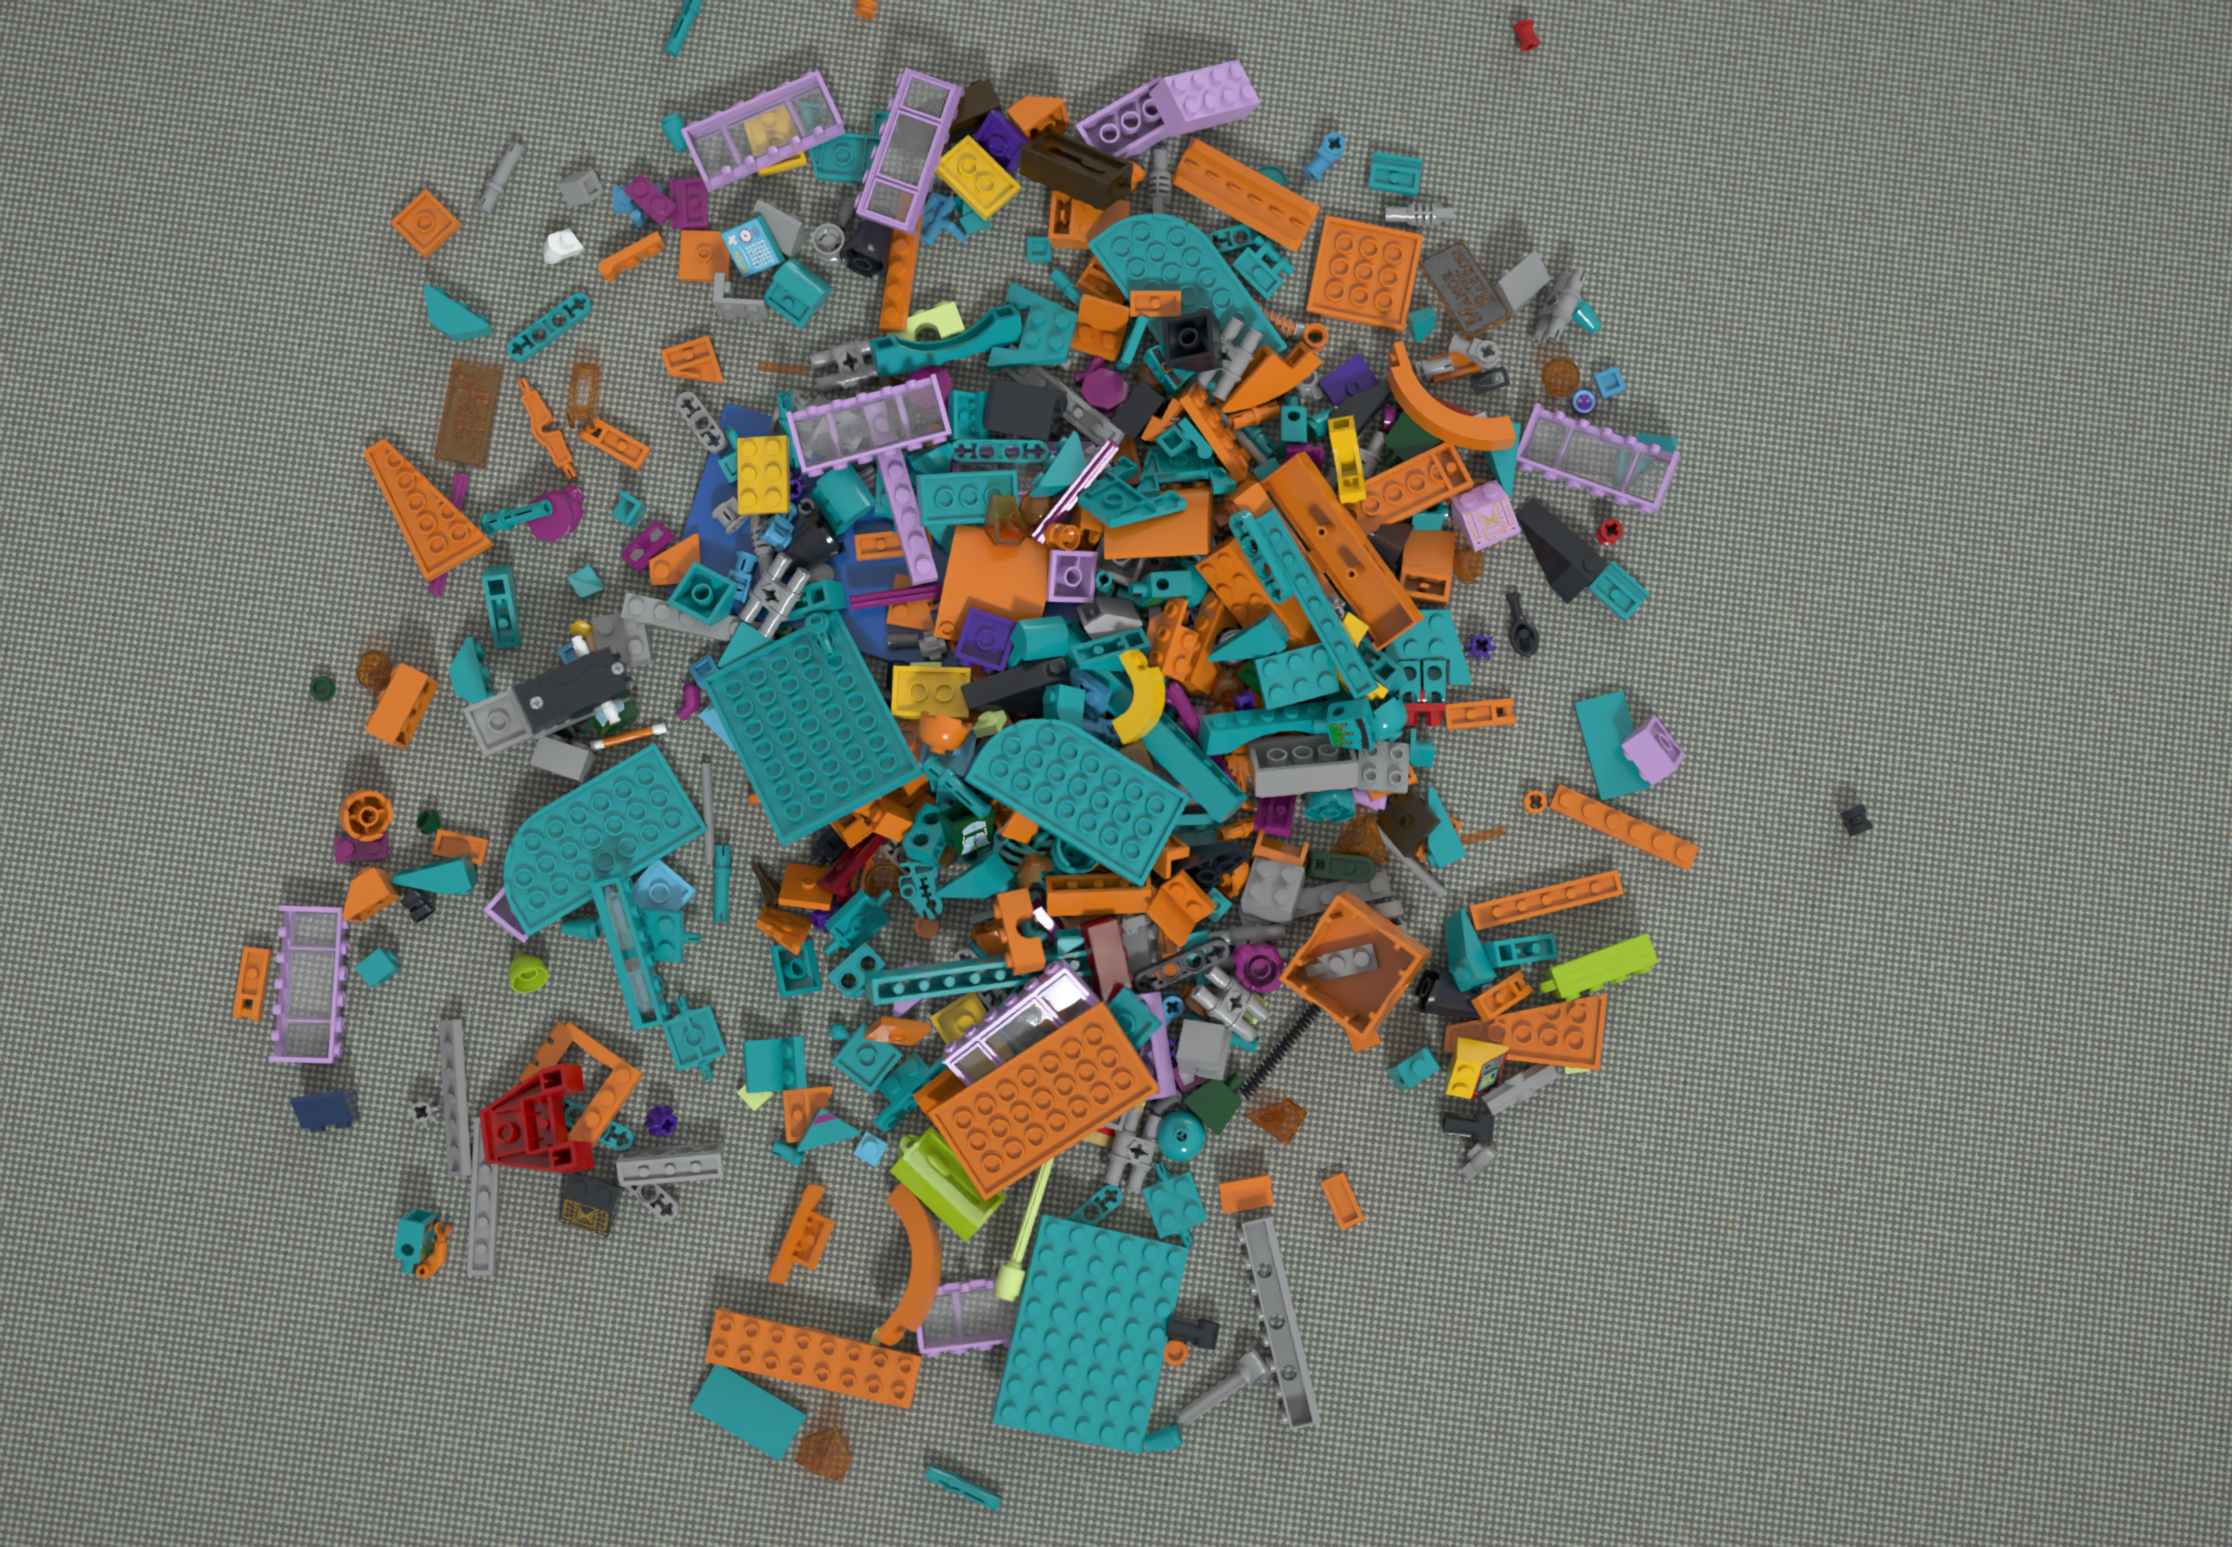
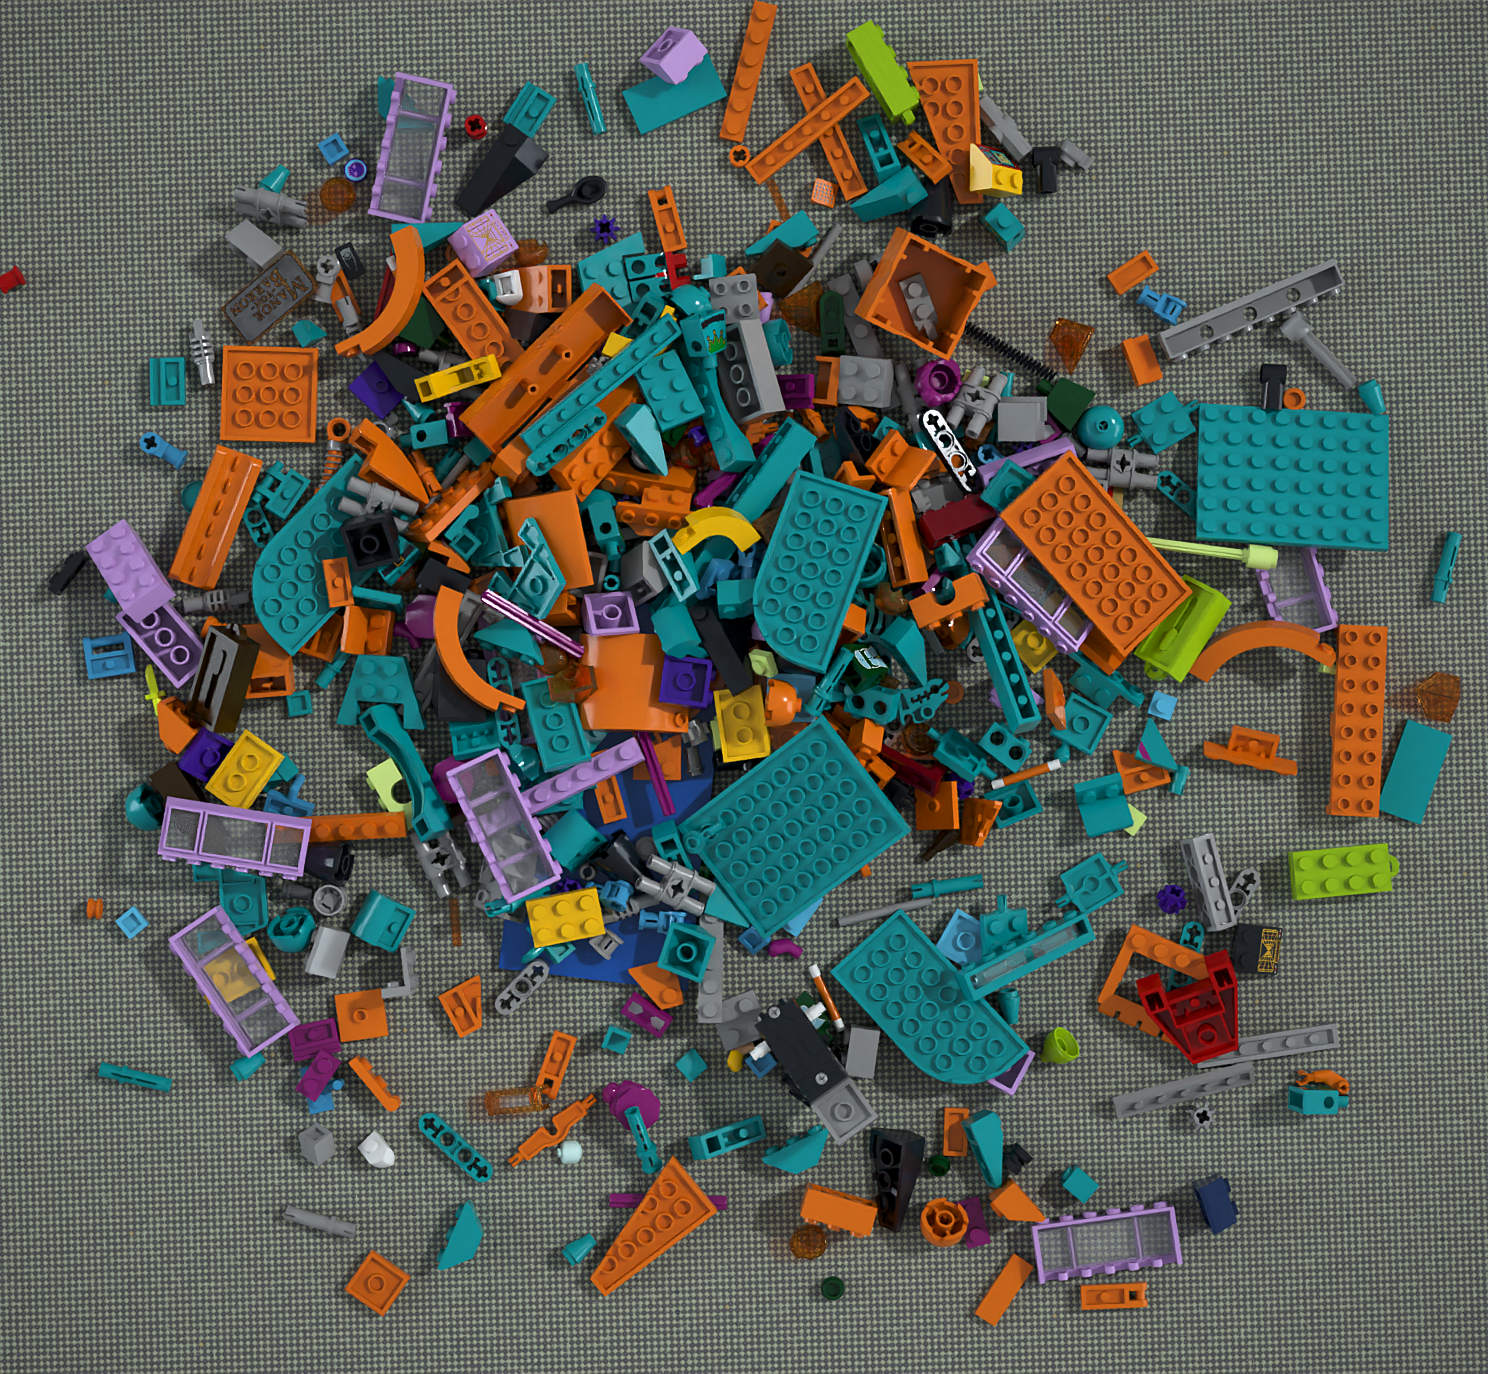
camera: 90 degrees left, 5 degrees up
(283, 868) = (1004, 1289): none -> orange tile
(417, 432) = (578, 1249): none -> teal cone
(438, 779) = (897, 1165): none -> black wedge
(468, 414) = (551, 1206): clear orange tile -> none
(521, 443) = (569, 1152): none -> light aqua piece
(655, 1311) = (1341, 870): none -> lime piece
(752, 246) = (347, 970): tile -> none
(804, 198) = (292, 931): none -> teal cylinder
(824, 989) = (1026, 774): none -> orange bar
(844, 43) = (132, 922): none -> medium azure plate
(959, 70) = (145, 808): none -> teal cylinder
(1062, 536) = (577, 628): orange wheel -> none
(1068, 400) = (452, 657): none -> orange arch
(1074, 106) = (154, 694): none -> neon yellow piece
(1114, 67) = (109, 663): none -> dark azure plate
(1208, 33) = (61, 580): none -> black plate
(1300, 1226) = (1162, 305): none -> dark azure connector
(1434, 534) = (508, 287): none -> white plate
(1481, 884) = (824, 193): none -> orange slope
(1550, 877) = (808, 130): none -> orange plate
(1620, 656) = (587, 89): none -> teal pin

